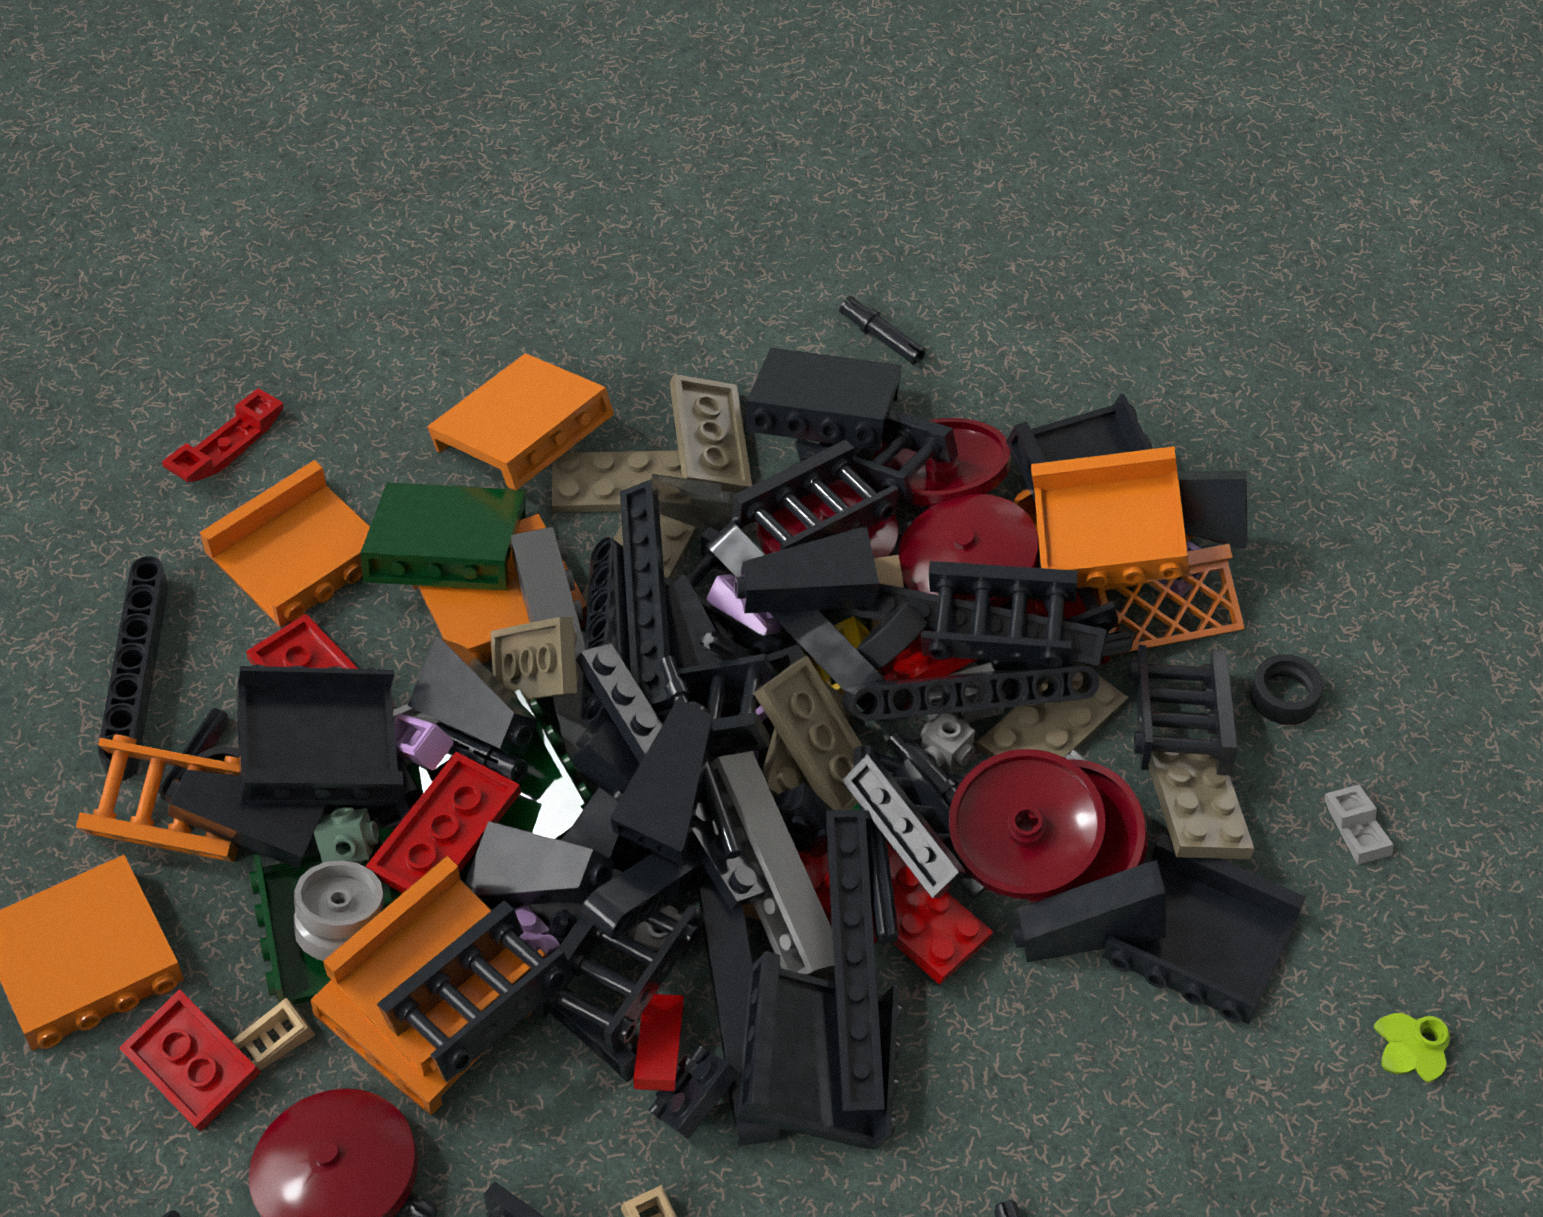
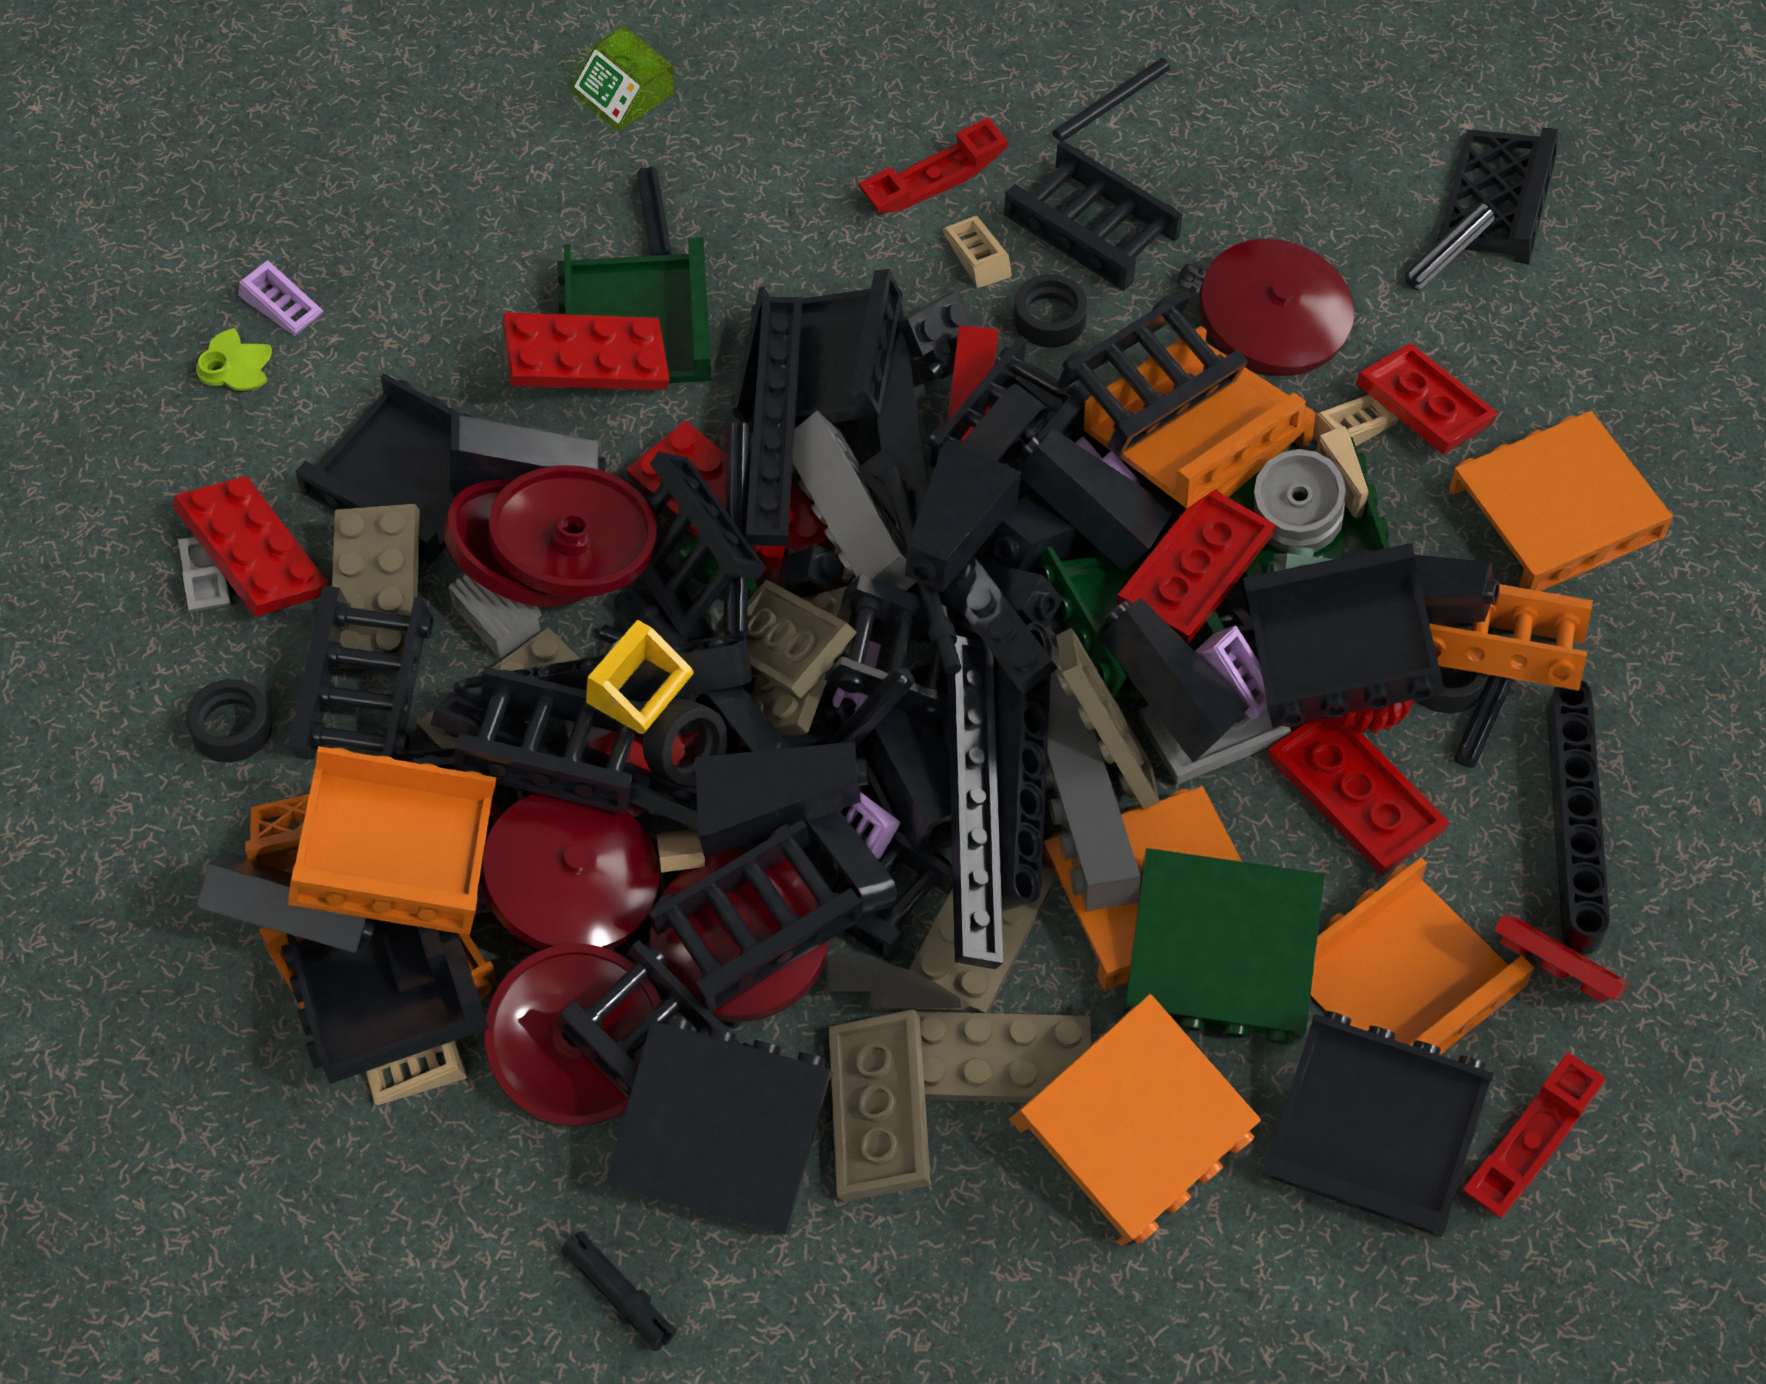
camera: 175 degrees left, 5 degrees up
(182, 541) = (1560, 959): none -> red plate
(293, 970) = (1339, 448): none -> tan slope
(343, 425) = (1378, 1123): none -> black panel
(586, 1179) = (1046, 333): none -> black tyre
(952, 652) = (613, 671): none -> yellow tile
(1019, 1121) = (649, 288): none -> dark green panel
(1058, 1038) = (584, 351): none -> red plate
(1326, 842) = (250, 545): none -> red plate
(1403, 1141) = (267, 274): none -> lavender slope

